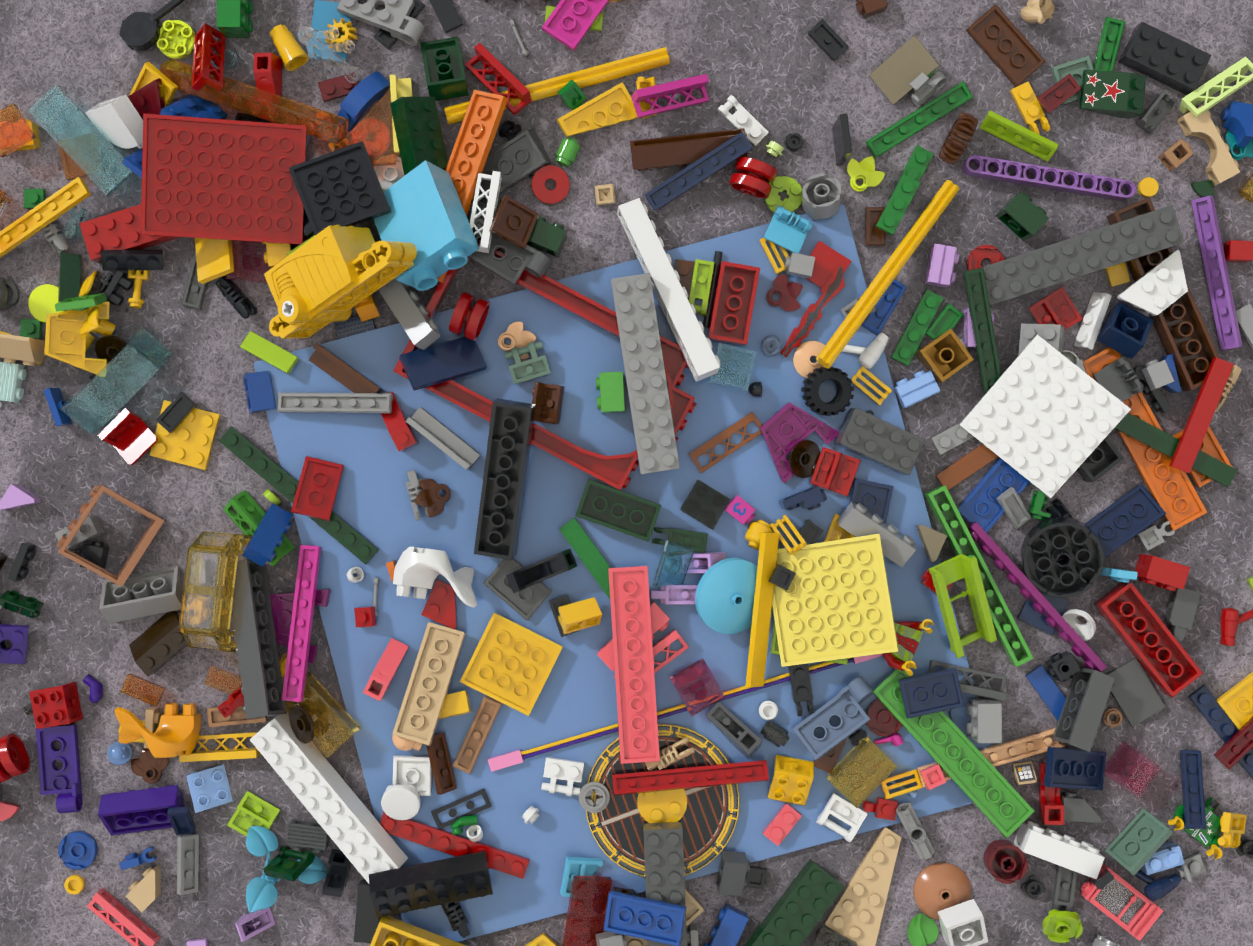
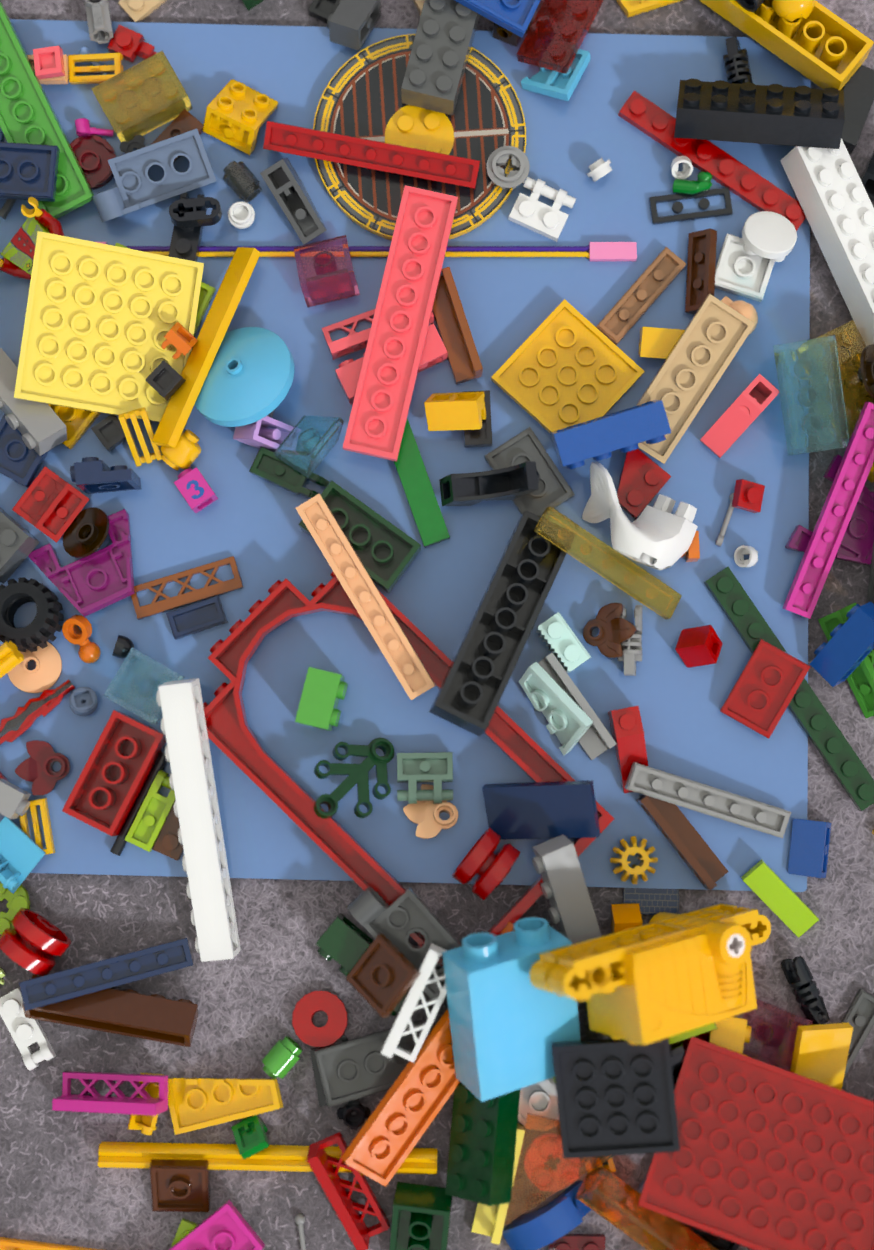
camera: 165 degrees left, 5 degrees down
(272, 497) = (831, 696): lime tile -> none
(340, 696) = (811, 395): none -> clear light blue brick
(369, 504) = (699, 646): none -> red panel
(370, 343) = (634, 870): none -> yellow gear
(446, 541) = (608, 562): none -> clear yellow tile
(448, 431) = (561, 712): none -> light aqua wing
(461, 479) = (563, 642): none -> light aqua brick
(468, 629) = (611, 432): none -> blue brick
(548, 402) = (412, 717): reddish brown bracket -> none
(572, 349) = (357, 775): none -> dark green plant
(596, 671) = (455, 330): none -> dark orange fence
(601, 469) = (365, 597): none -> light nougat plate
(605, 194) = (247, 982): tan tile -> none
(609, 51) = (180, 1185): none -> reddish brown tile
(645, 373) = (264, 709): light grey brick -> none
(670, 755) = (388, 191): tan hinge -> none
(675, 594) = (315, 402): lavender hinge -> none
(705, 504) = (241, 511): clear smoke hinge -> none
(713, 424) = (196, 617): none -> dark blue tile
(778, 380) = (89, 651): none -> orange plate
(780, 608) = (180, 338): none -> orange tile
(782, 824) = (269, 63): coral plate -> none
(798, 700) = (195, 212): none -> black beam
(845, 812) = (181, 54): white plate -> none

